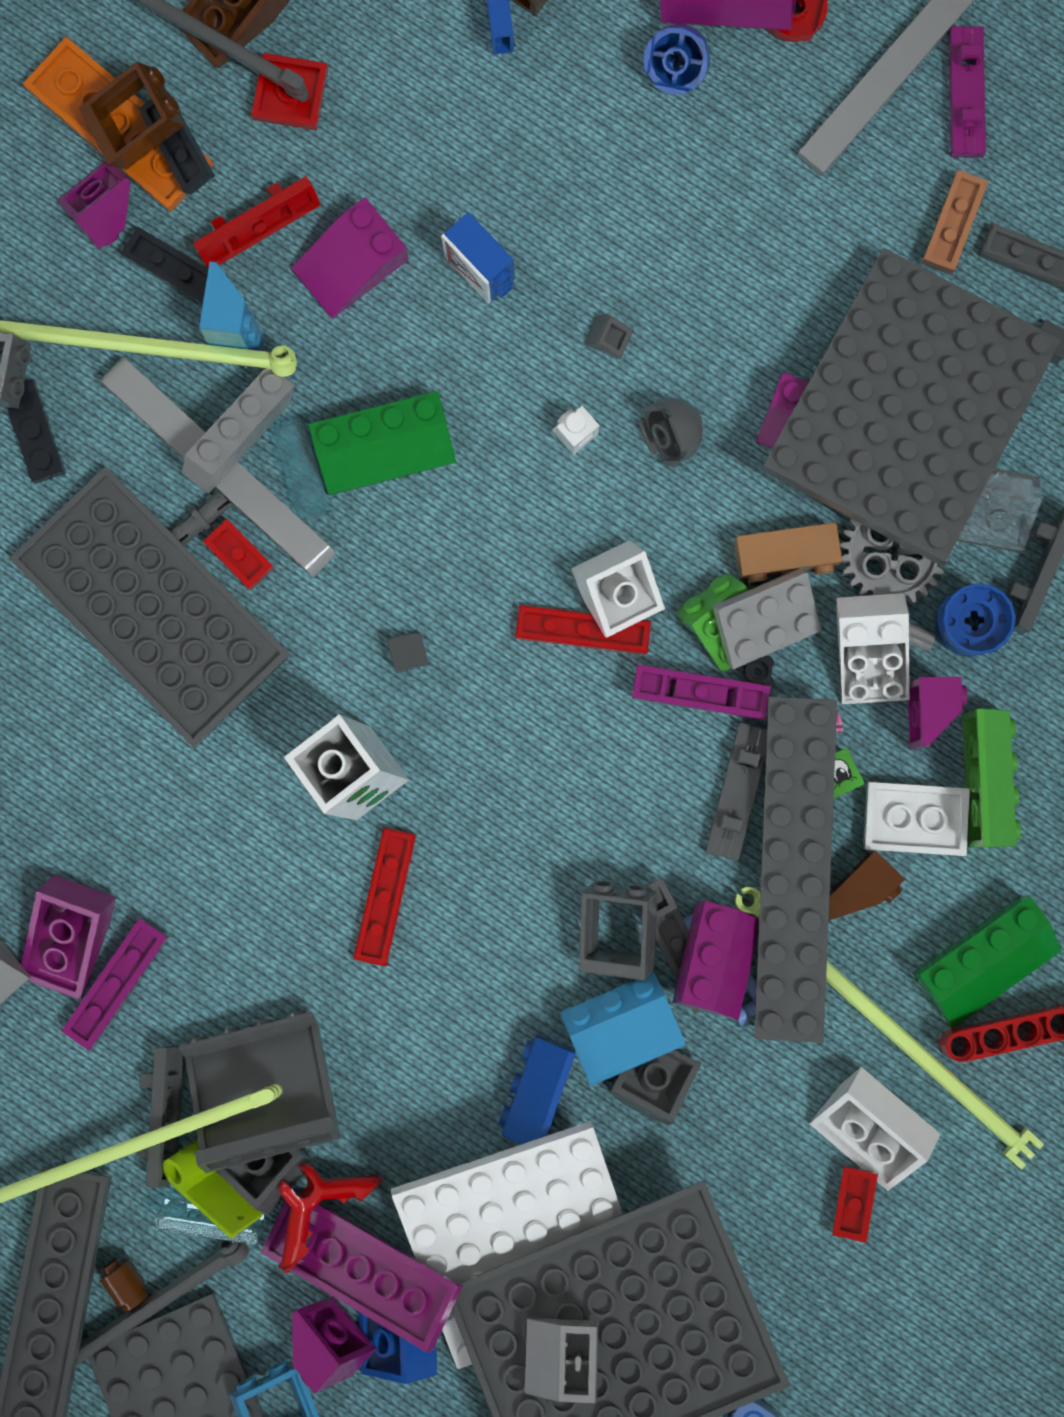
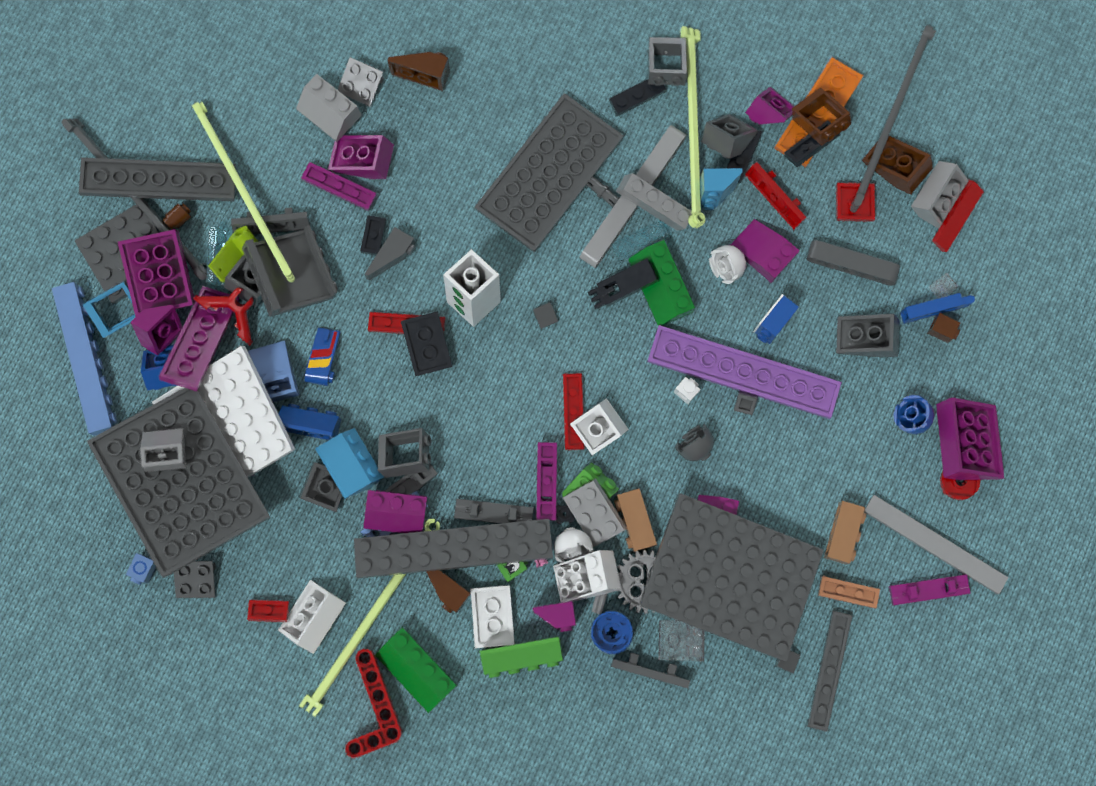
camera: 75 degrees right, 5 degrees down
(137, 284) = (728, 135): none -> dark grey slope
(216, 934) = (373, 235): none -> black plate
(225, 1334) = (156, 271): none -> magenta slope
(238, 554) = (586, 215): red plate -> none
(250, 901) = (392, 252): none -> dark grey slope
(366, 323) = (728, 263): none -> white cylinder
(373, 498) = (629, 282): none -> black hinge
(396, 114) = (853, 262): none -> dark grey beam
(422, 1053) = (321, 357): none -> blue door
(428, 865) = (426, 343): none -> black plate
(434, 1141) = (275, 370): none -> medium blue slope
(527, 112) = (868, 335): none -> dark grey slope
(557, 330) = (744, 372): none -> medium lavender plate
(788, 1322) = (195, 580): none -> dark grey hinge
(815, 664) = (572, 544): none -> white cylinder
(856, 209) = (845, 533): none -> medium nougat brick

